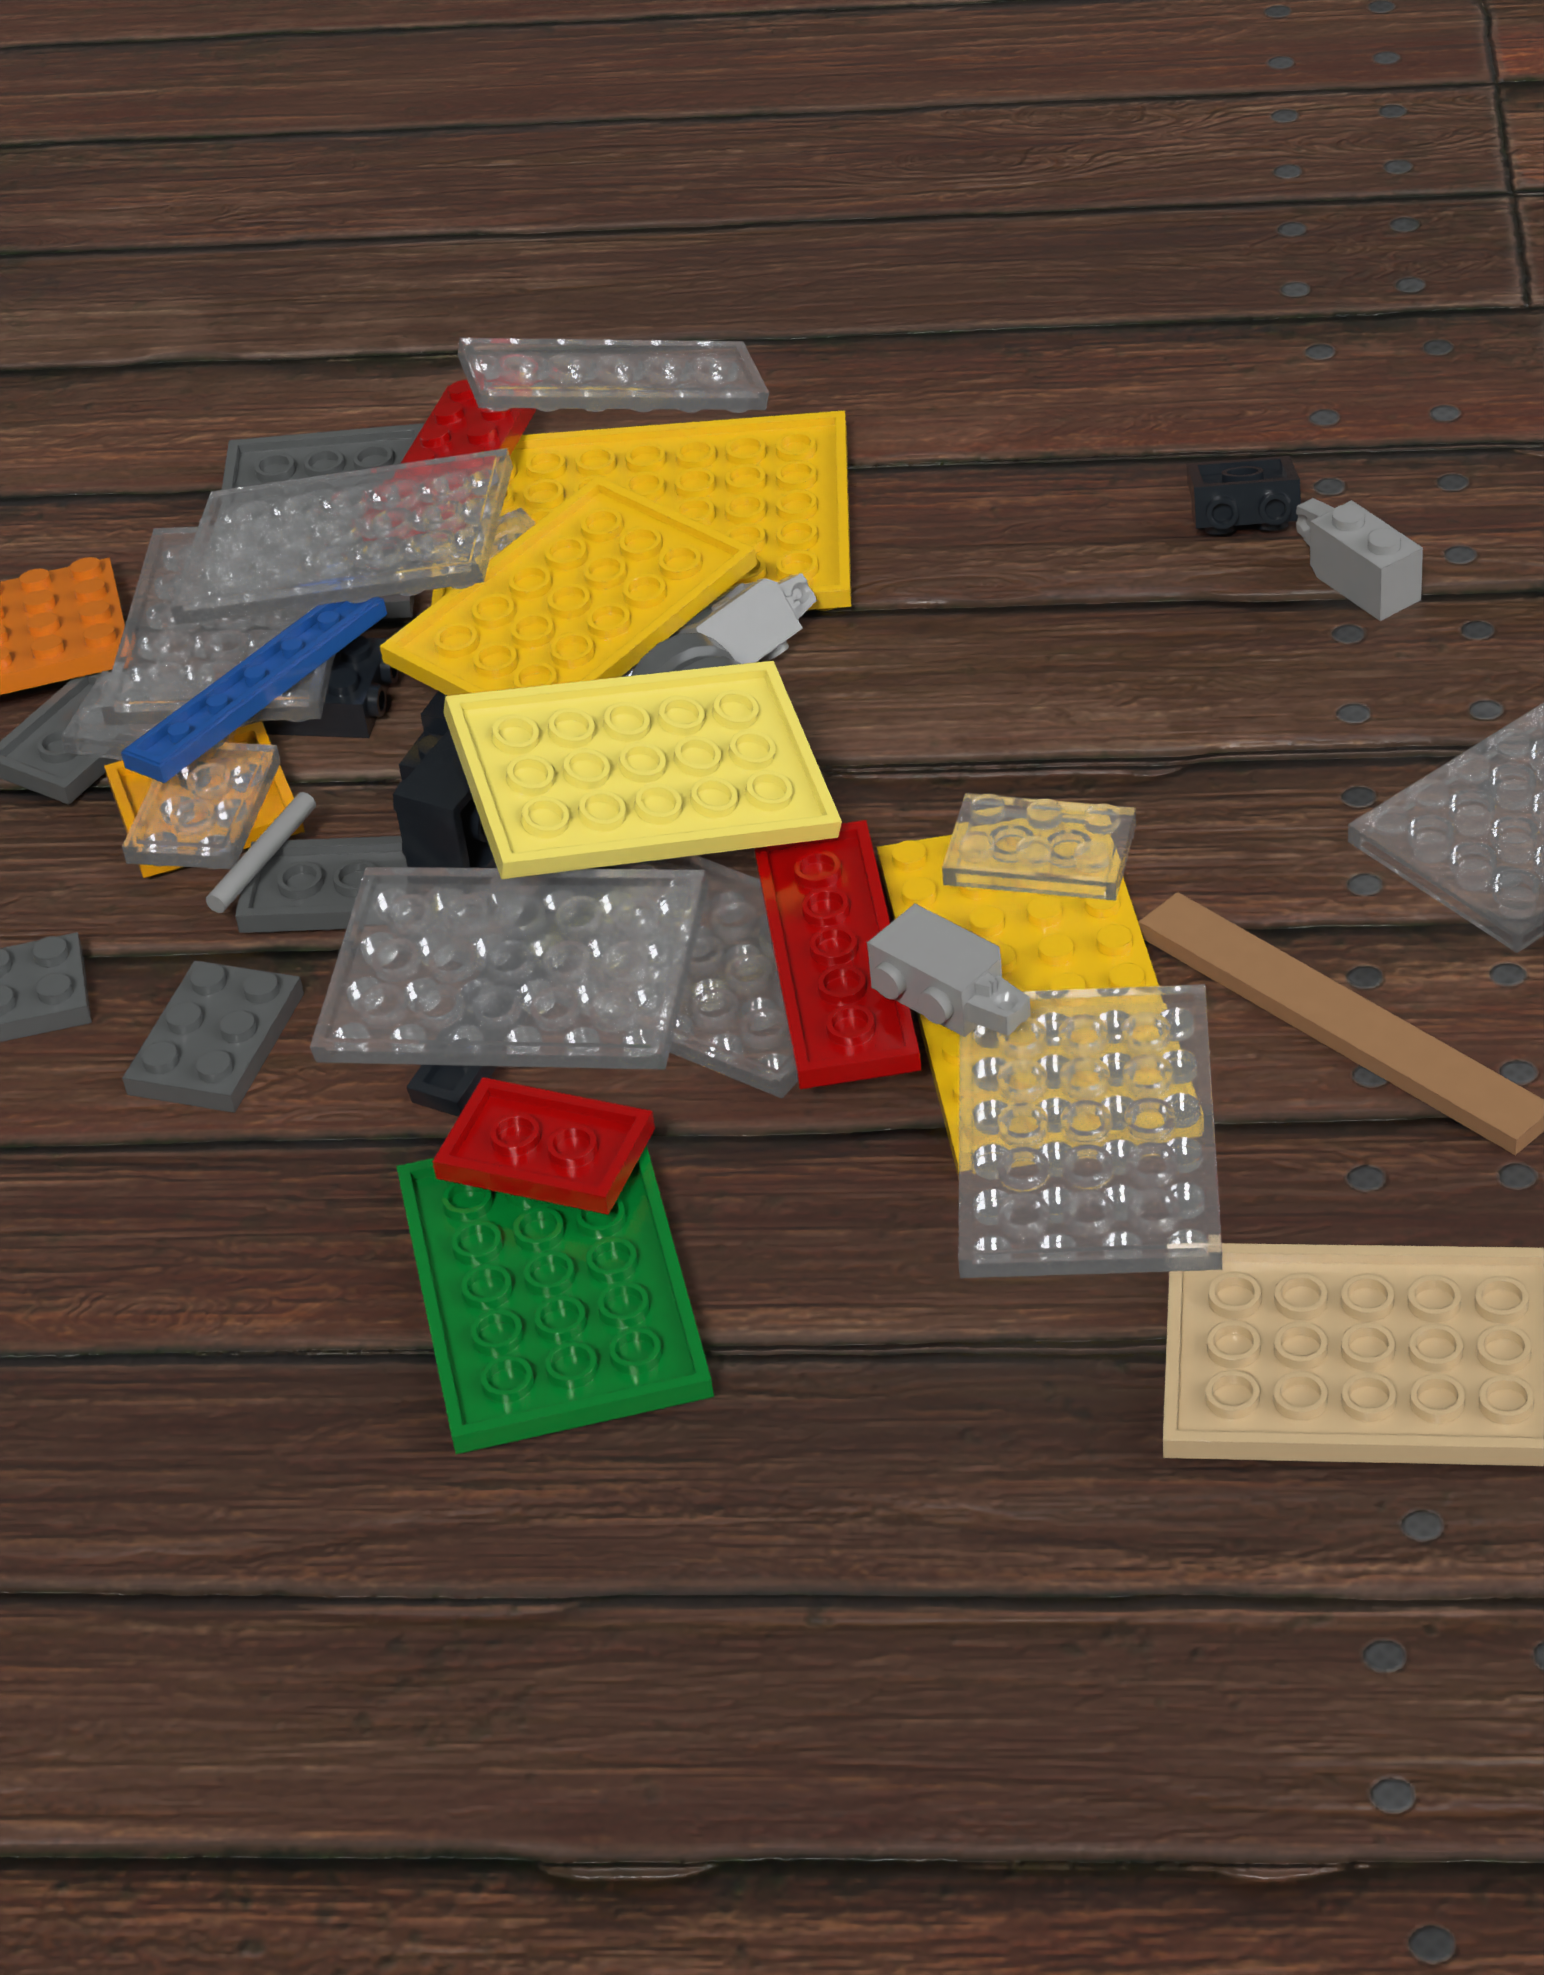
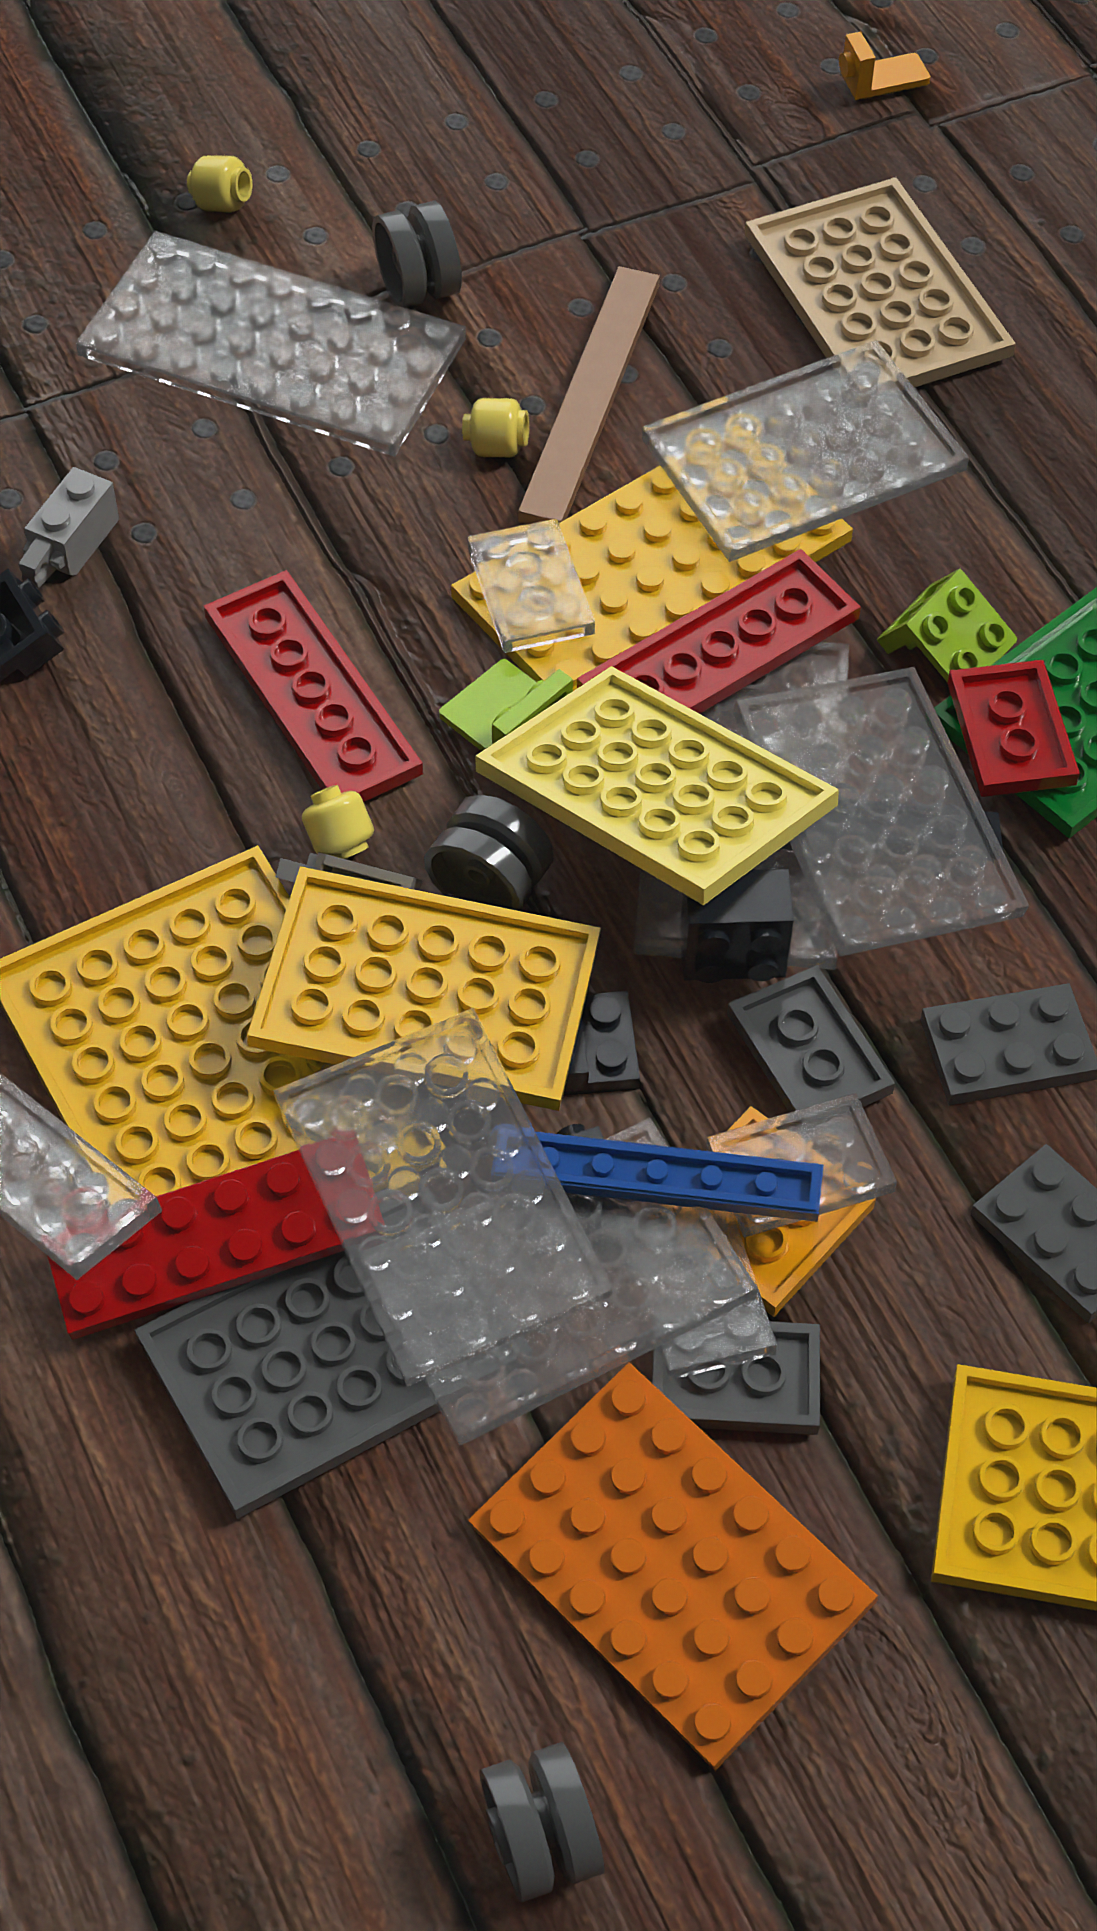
camera: 125 degrees left, 15 degrees up
(260, 852) = (816, 1094): light grey bar -> none
(735, 1178) = (951, 626): none -> lime bracket
(829, 637) = (337, 822): none -> light yellow head
(897, 801) = (501, 702): none -> lime bracket
(945, 974) = (739, 539): light grey hinge -> none
(1028, 678) = (312, 688): none -> plate
(1313, 900) = (496, 427): none -> light yellow head

